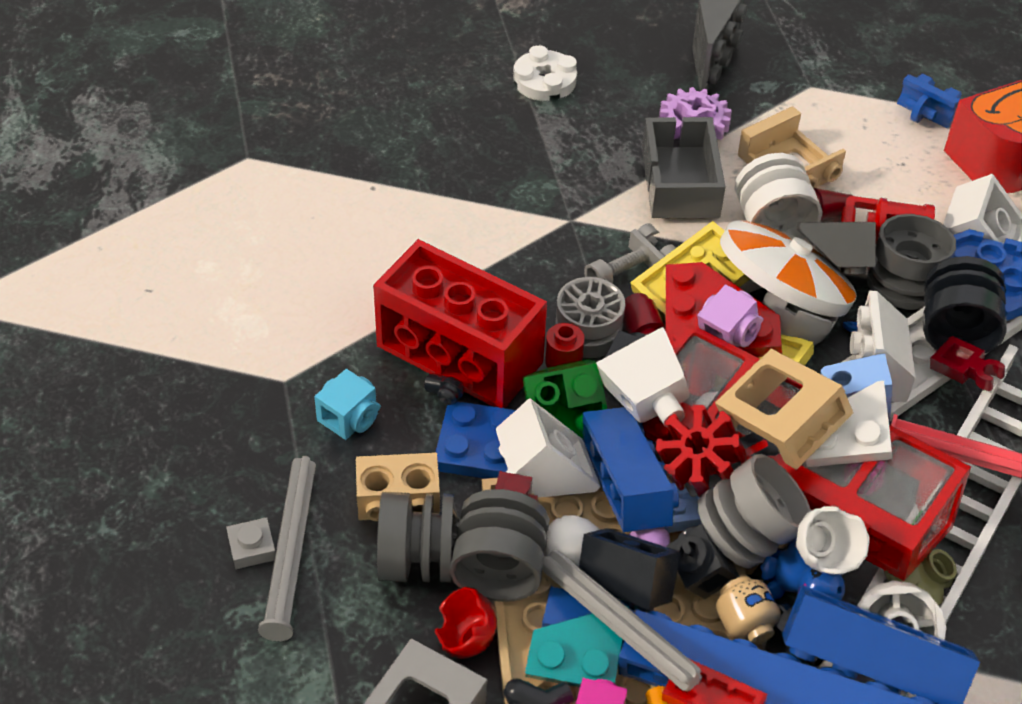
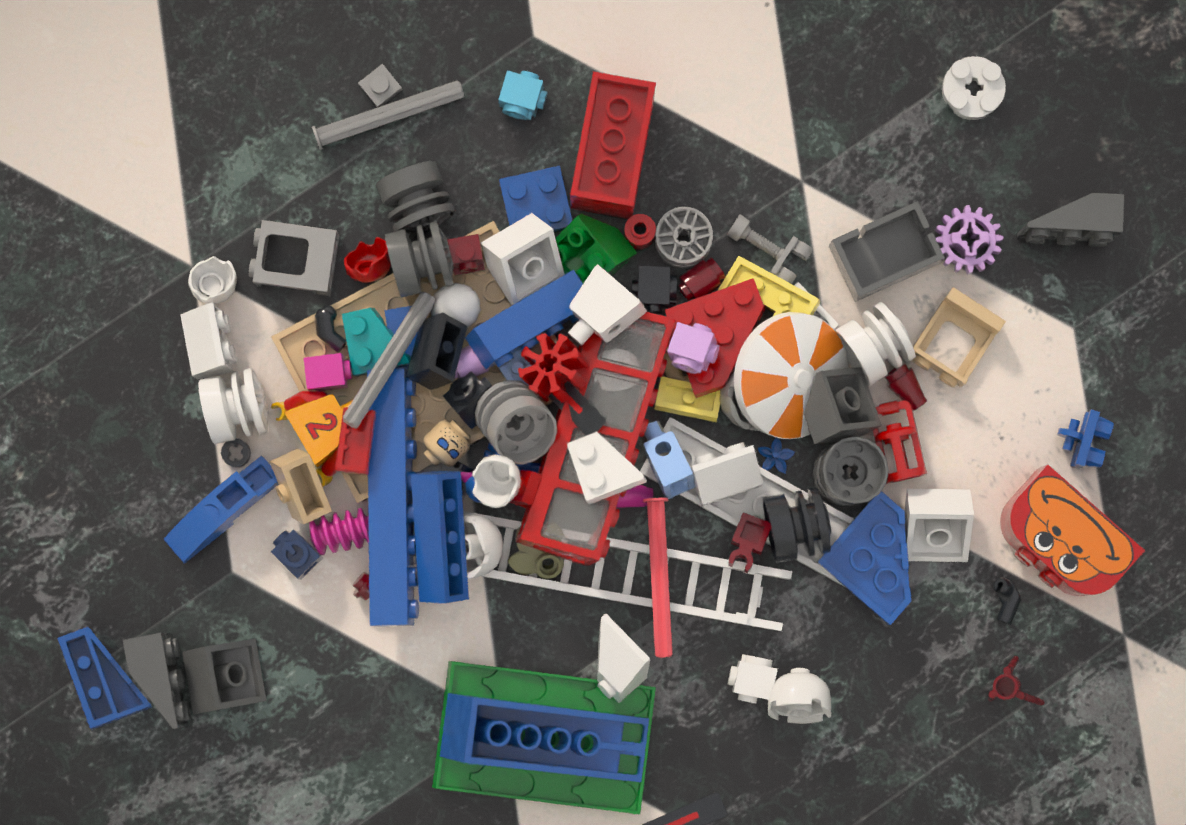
camera: 70 degrees right, 35 degrees up
(396, 474) = (468, 162): tan brick -> none
(446, 388) = (565, 163): black arm -> none
(801, 423) = (585, 433): tan window -> none

